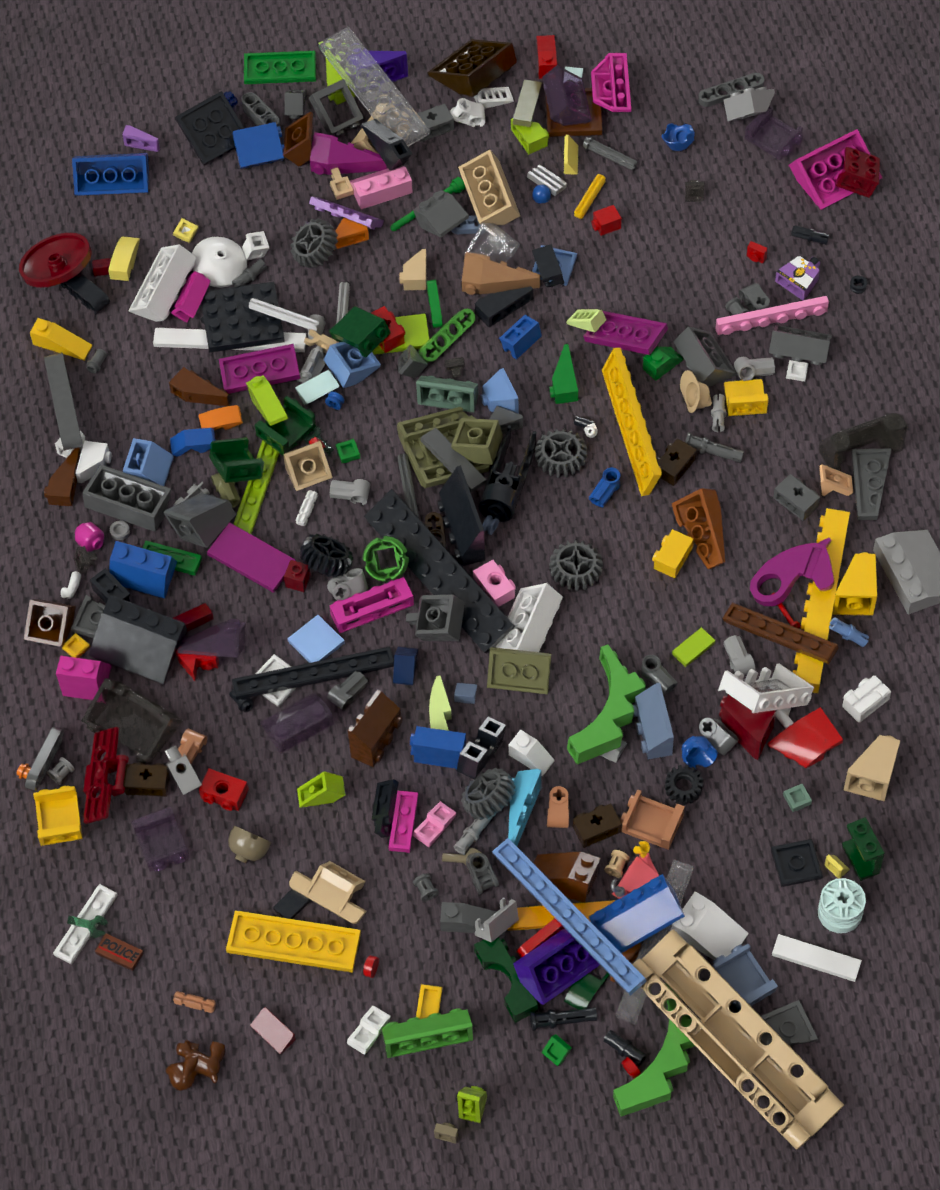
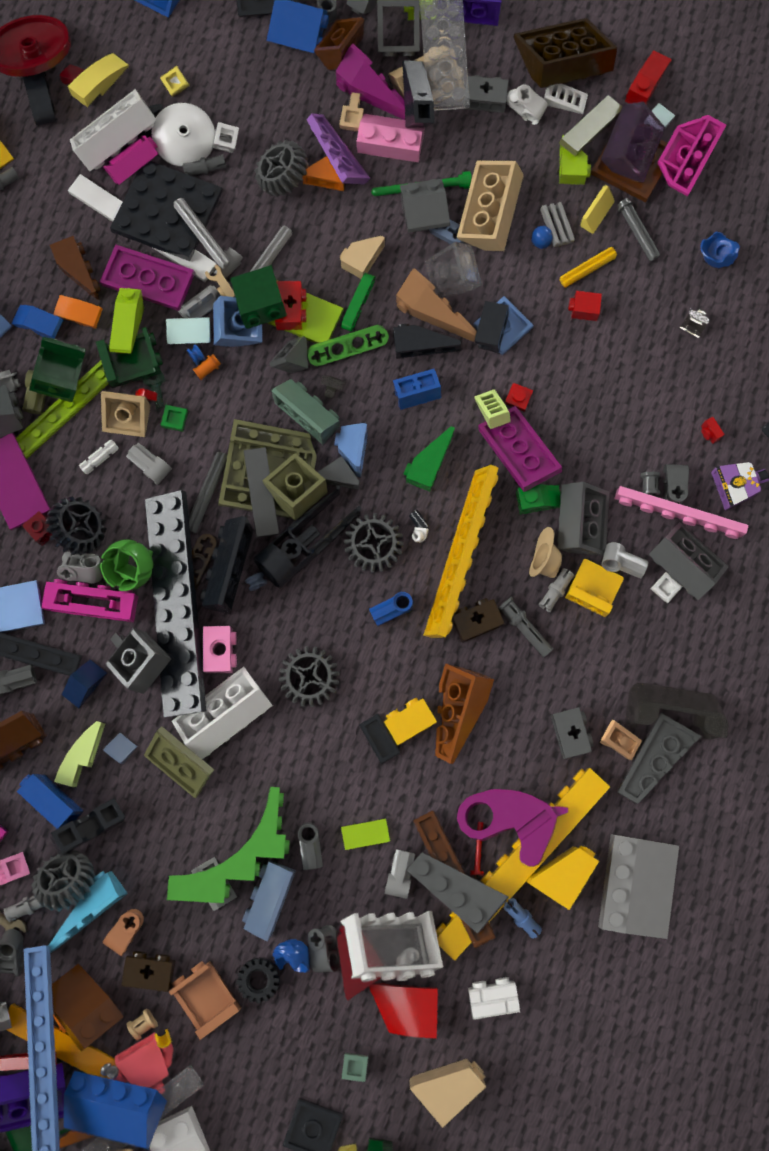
camera: 30 degrees right, 20 degrees up
(350, 401) = (207, 366): none -> orange pin
(530, 752) = (136, 855): white slope -> none
(600, 302) = (518, 396): none -> red plate
(658, 579) = (379, 738): none -> black tile
(794, 633) = (462, 894): none -> dark grey wing

